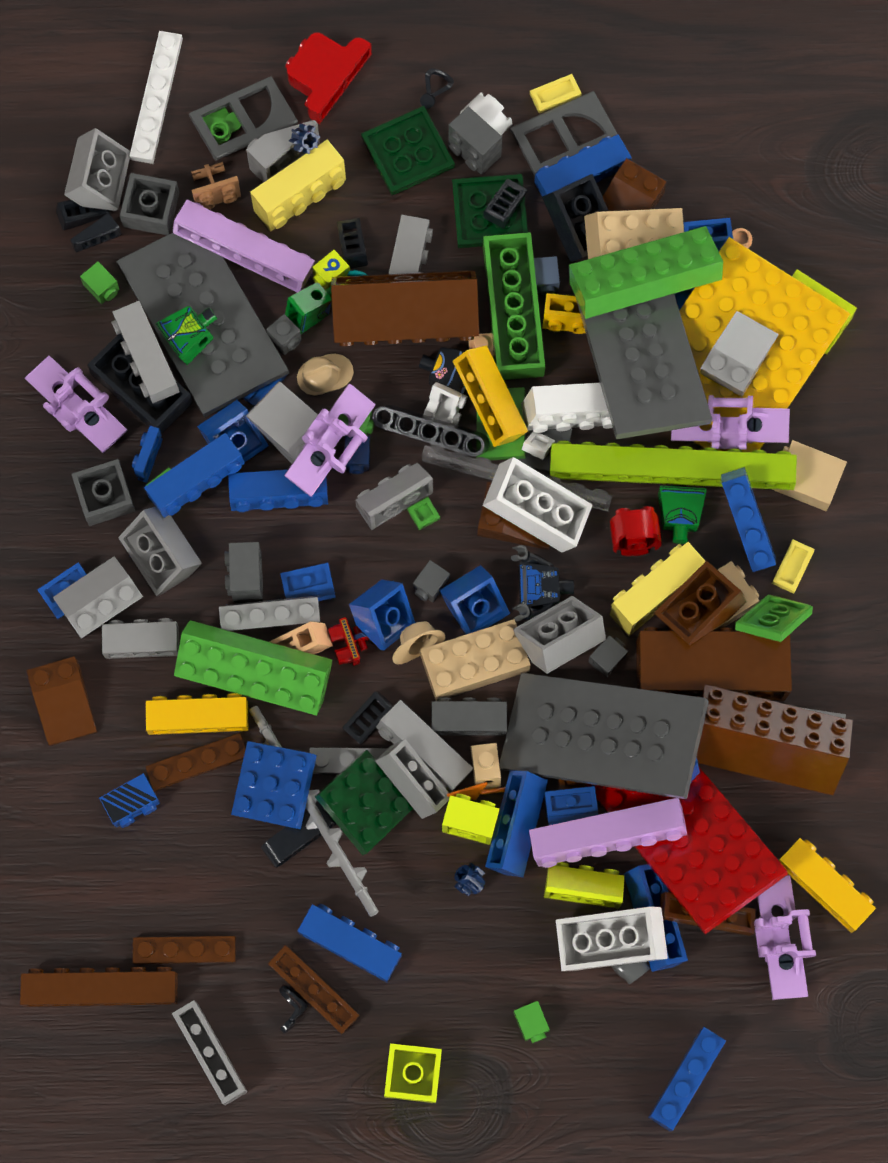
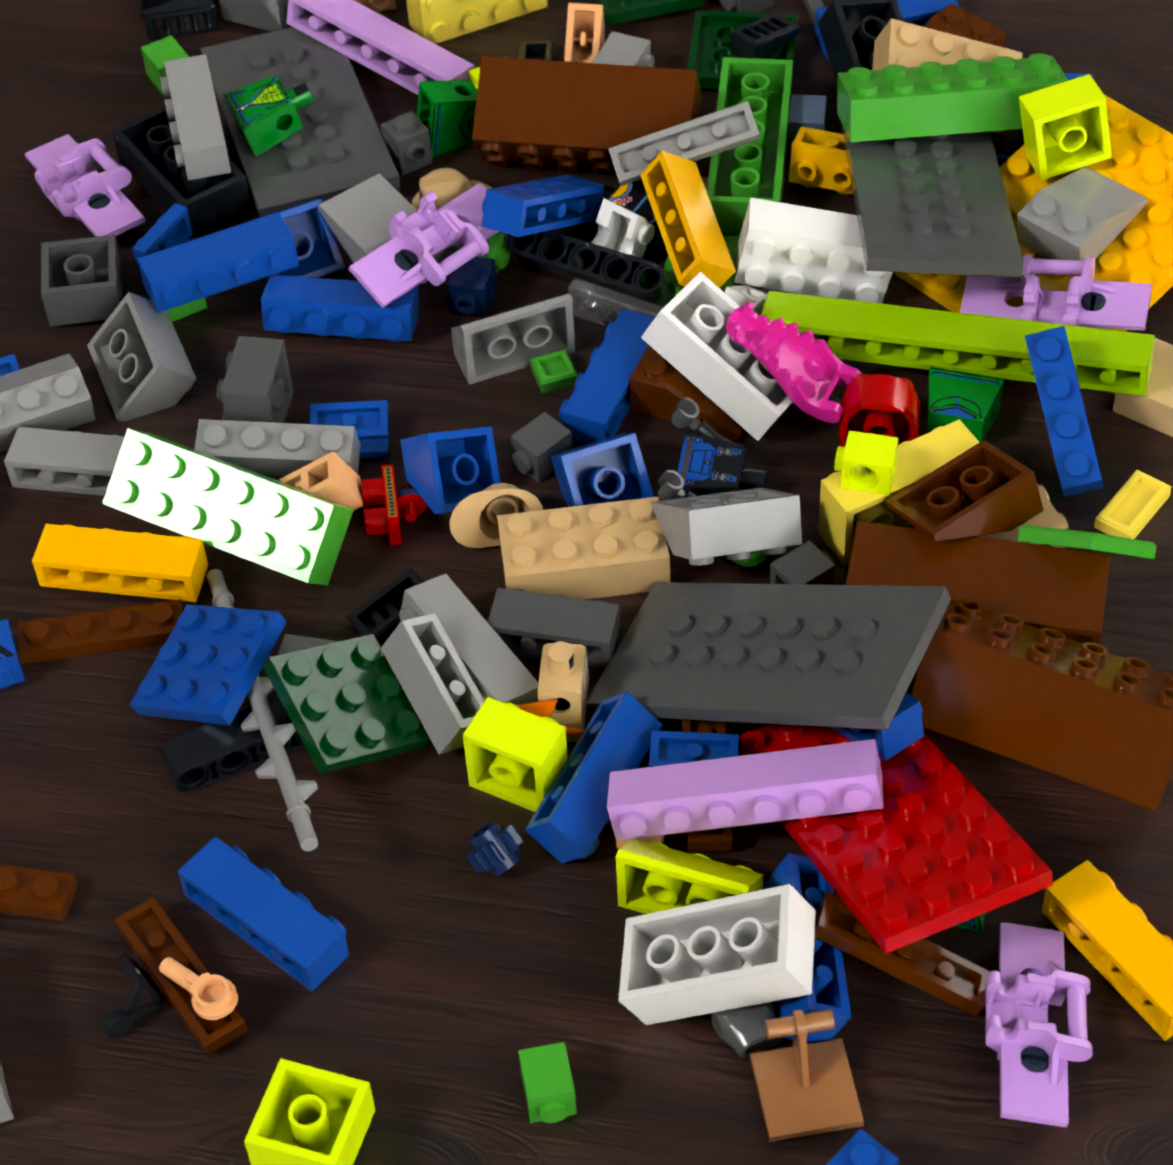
camera: 15 degrees right, 25 degrees down
(339, 1006) = (211, 994): none -> light nougat plate
(382, 220) = (584, 32): none -> light nougat slope
(393, 393) = (542, 205): none -> blue brick
(464, 518) = (603, 391): none -> blue brick
(477, 333) = (688, 140): none -> light grey plate
(580, 508) = (796, 360): none -> dark pink animal
(640, 592) = (867, 462): none -> neon yellow brick
(667, 997) = (805, 1085): none -> medium nougat plate
(722, 292) = (1065, 127): none -> neon yellow brick

